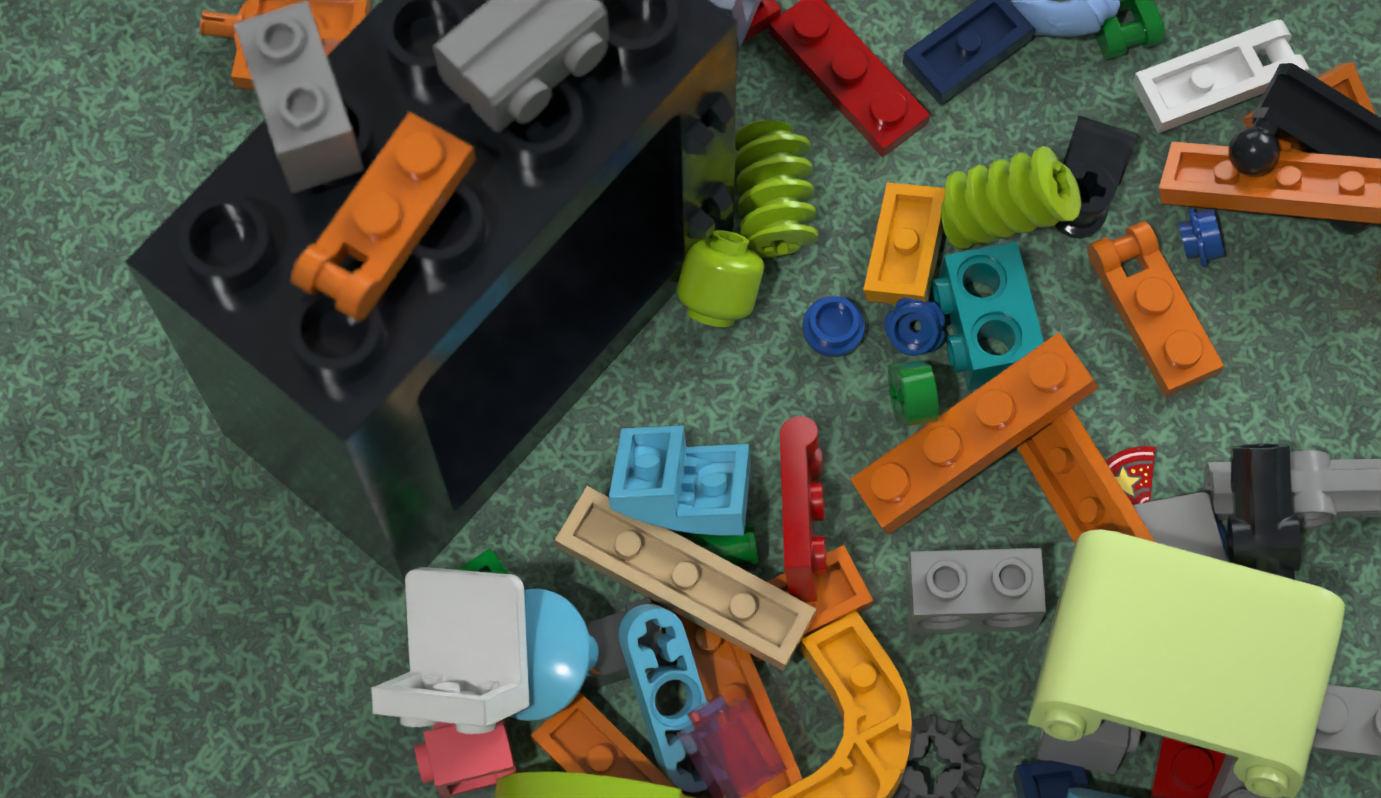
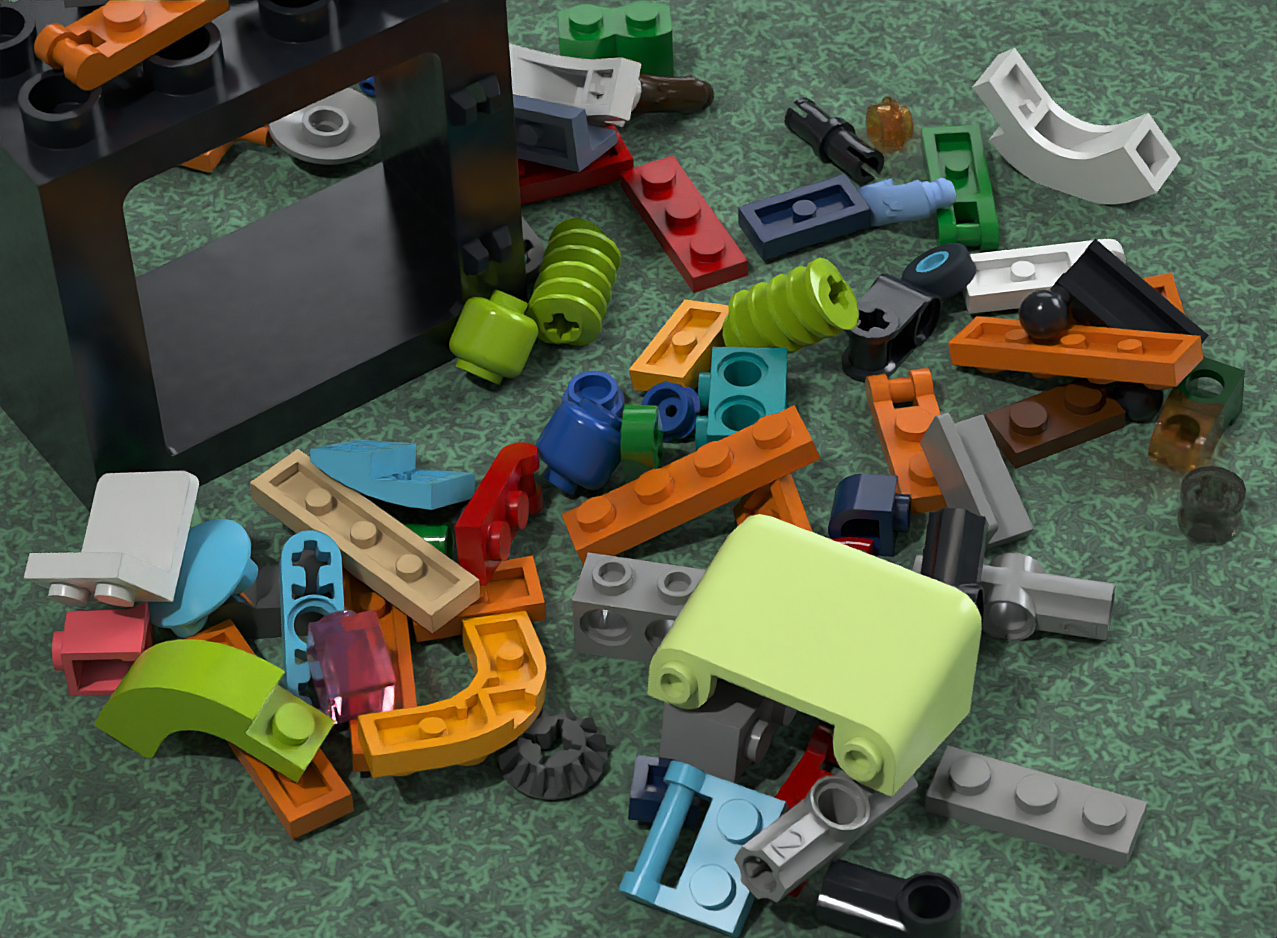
camera: 15 degrees right, 25 degrees down
(850, 398) = (580, 446): none -> blue head
(1113, 82) = (942, 270): none -> black wheel
(1144, 415) = (870, 509): none -> dark blue plate
(1201, 236) = (980, 389): blue plate -> none
(1238, 366) = (975, 476): none -> light grey panel
(1275, 258) = (1054, 421): none -> reddish brown plate

